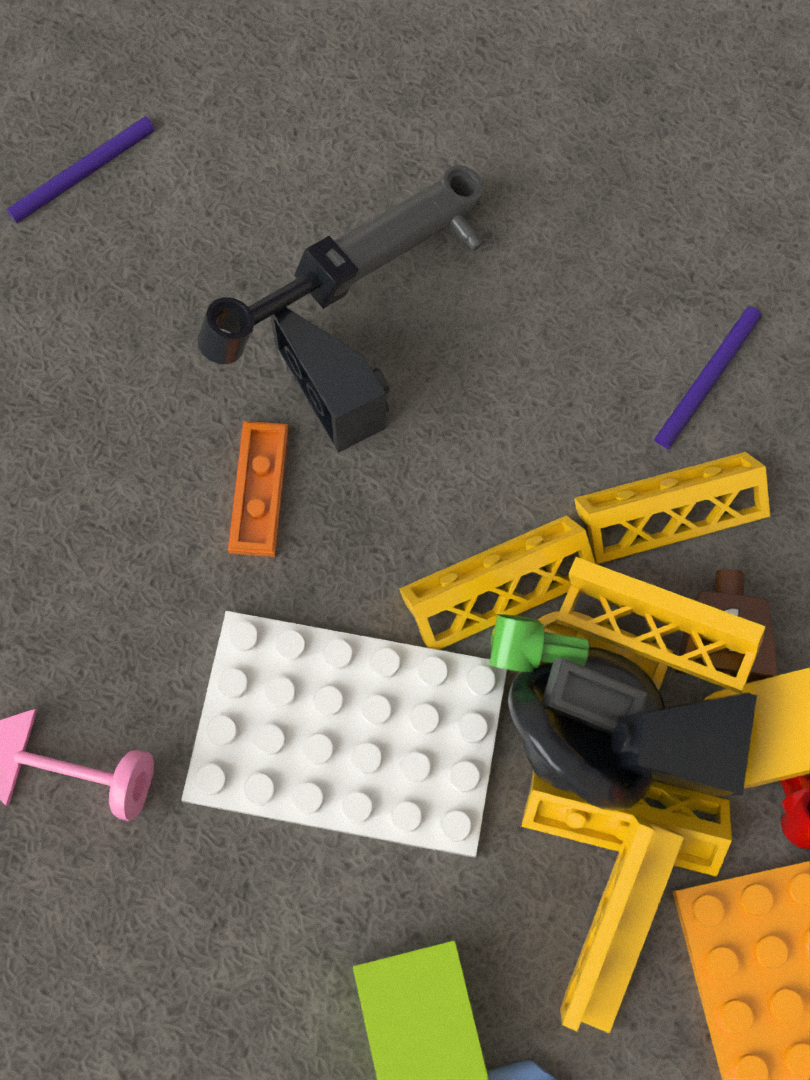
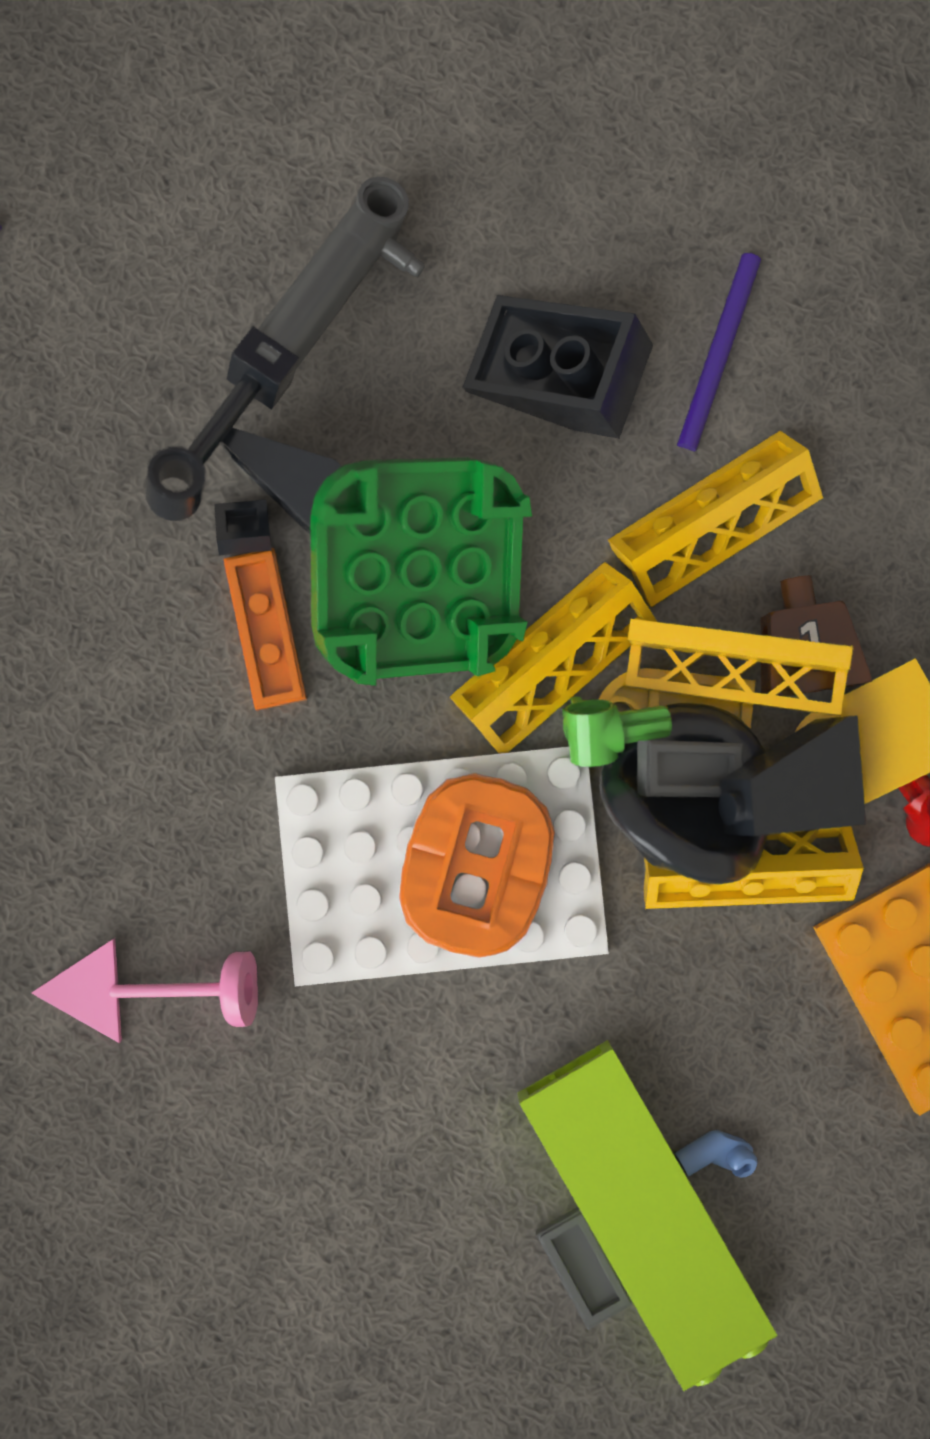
camera: 15 degrees left, 15 degrees up
(267, 400) = (242, 527): none -> black plate
(404, 464) = (417, 567): none -> green tile
(410, 755) = (514, 875): none -> orange piece
(574, 347) = (561, 363): none -> black slope
(620, 925) = (771, 981): yellow fence -> none

